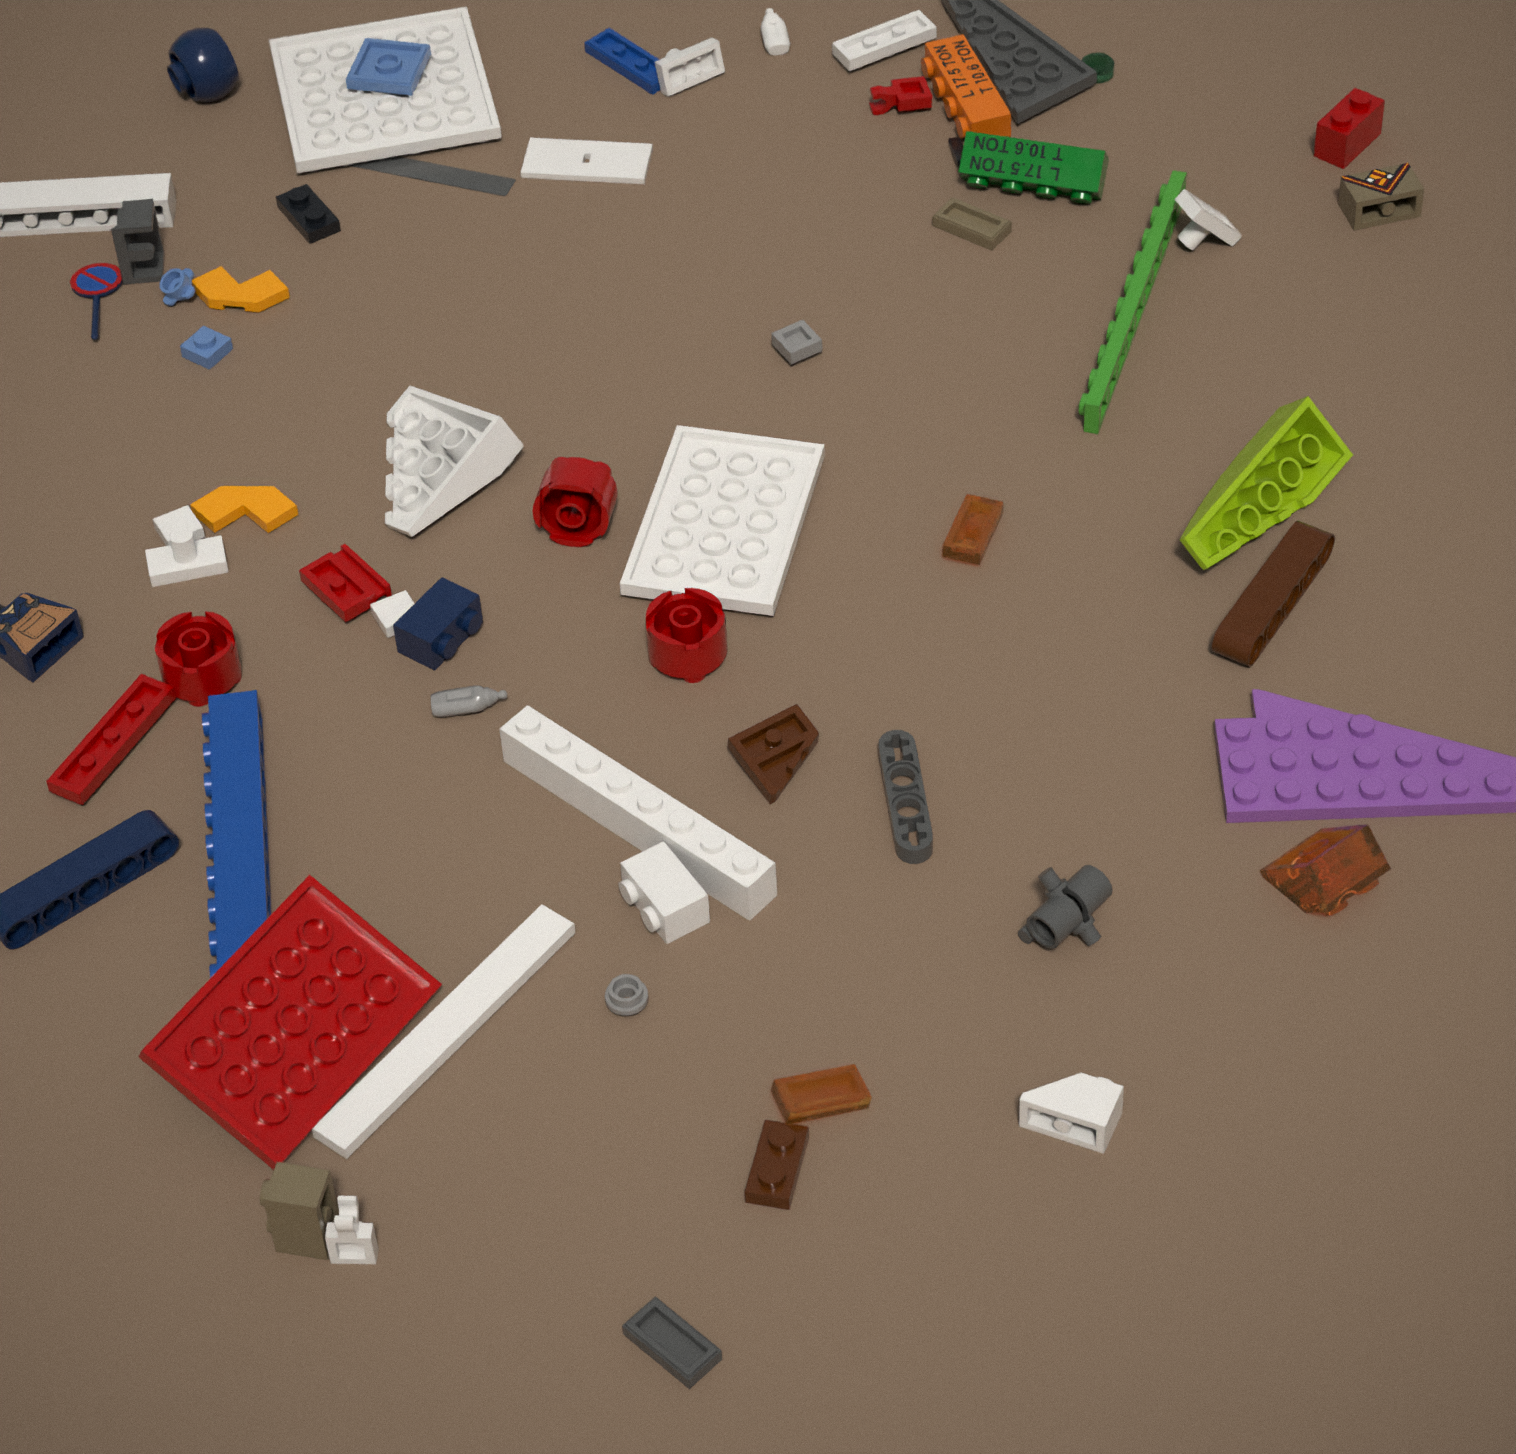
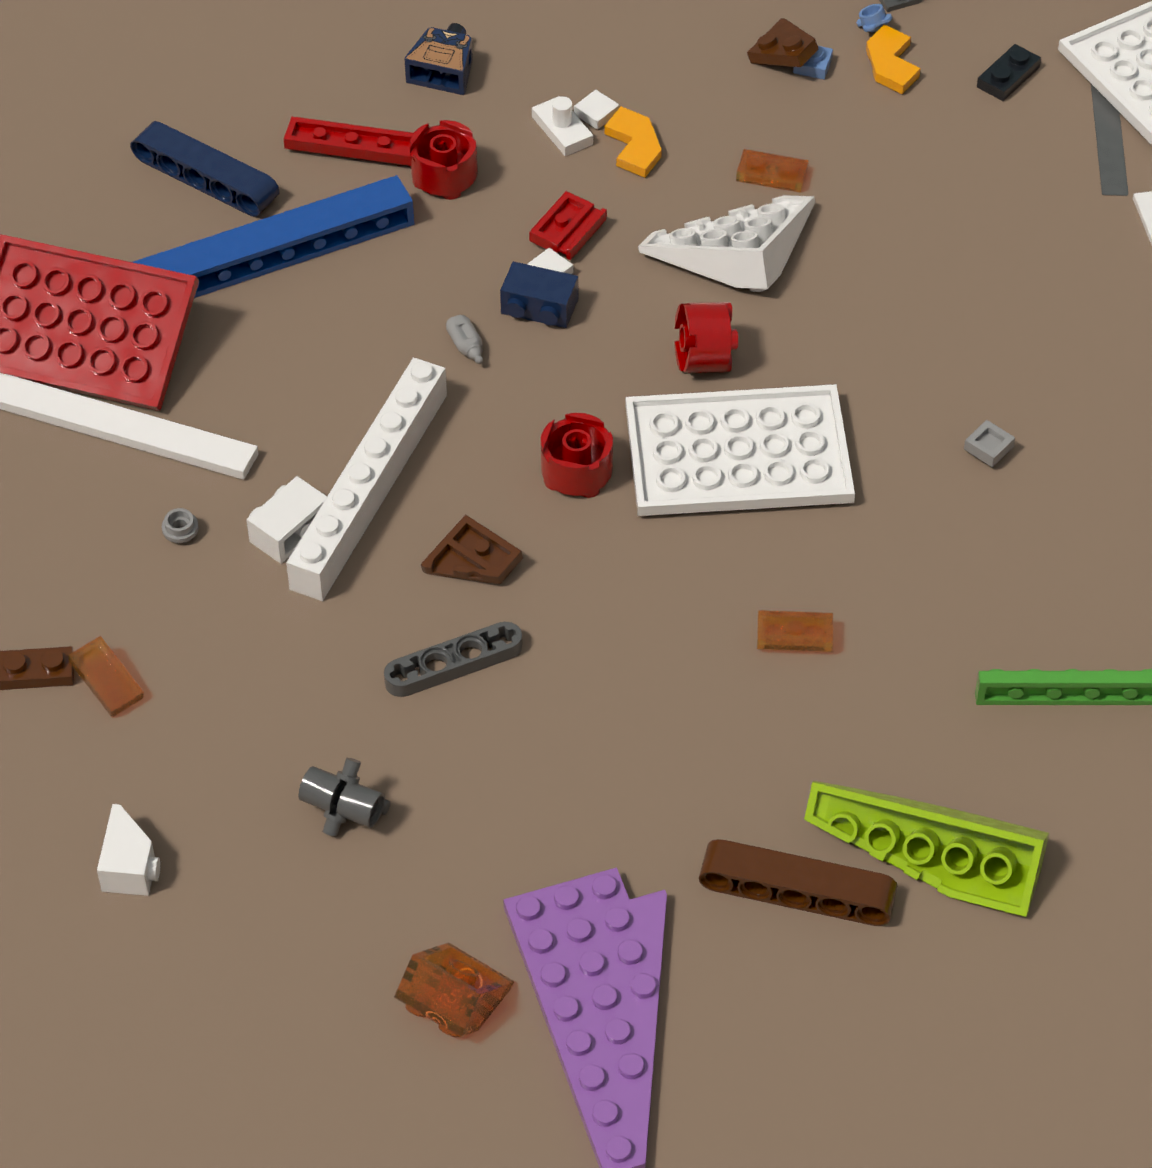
camera: 70 degrees right, 5 degrees up
(181, 356) = (783, 46): none -> reddish brown wing
(347, 413) = (772, 170): none -> clear orange plate

